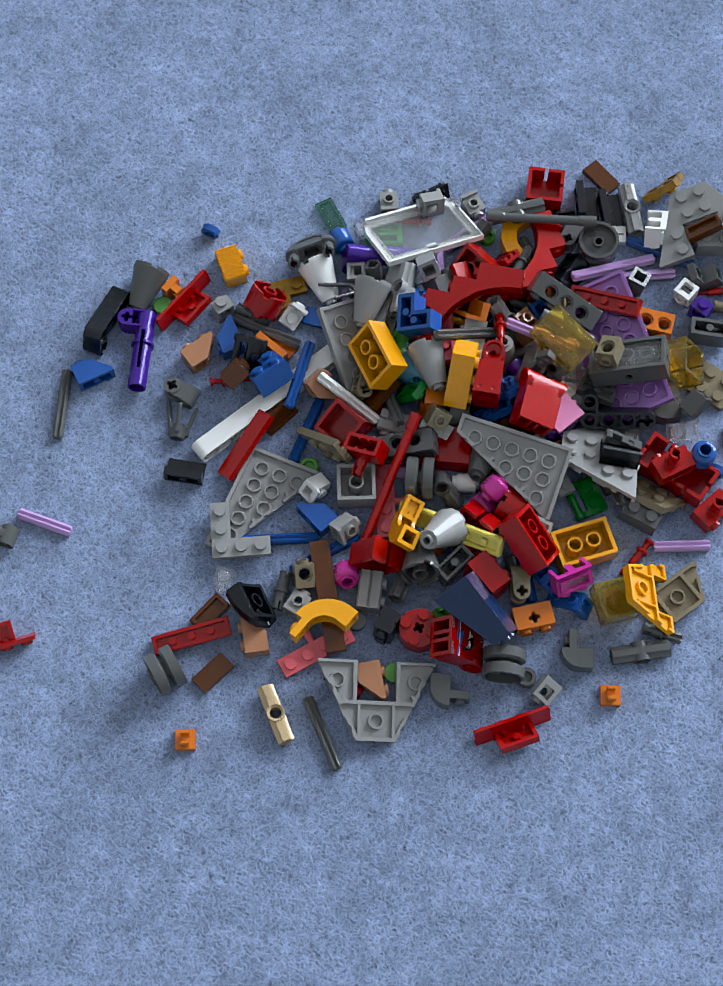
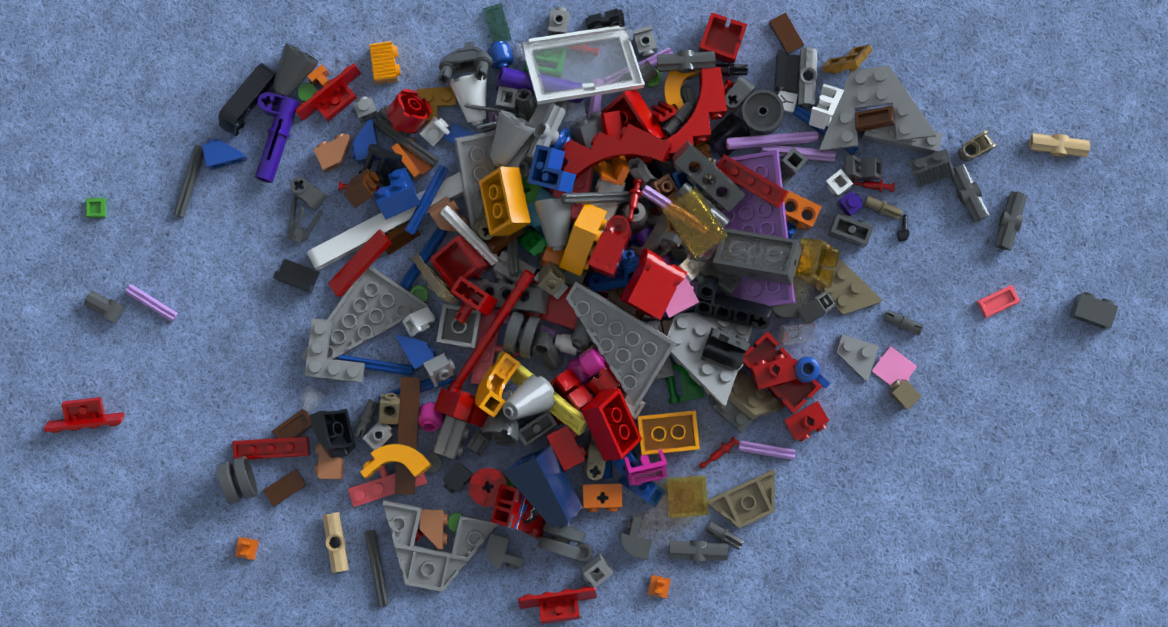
camera: 15 degrees right, 15 degrees up
(210, 231) = (370, 19): blue tile -> none
(428, 266) = (577, 112): light grey brick -> none
(431, 203) = (600, 34): light grey brick -> none
(582, 221) = (747, 87): dark grey piece -> none
(585, 200) = (764, 58): black panel -> none
(610, 350) = (734, 239): dark tan brick -> none
(642, 593) = (711, 494): light orange wing -> none

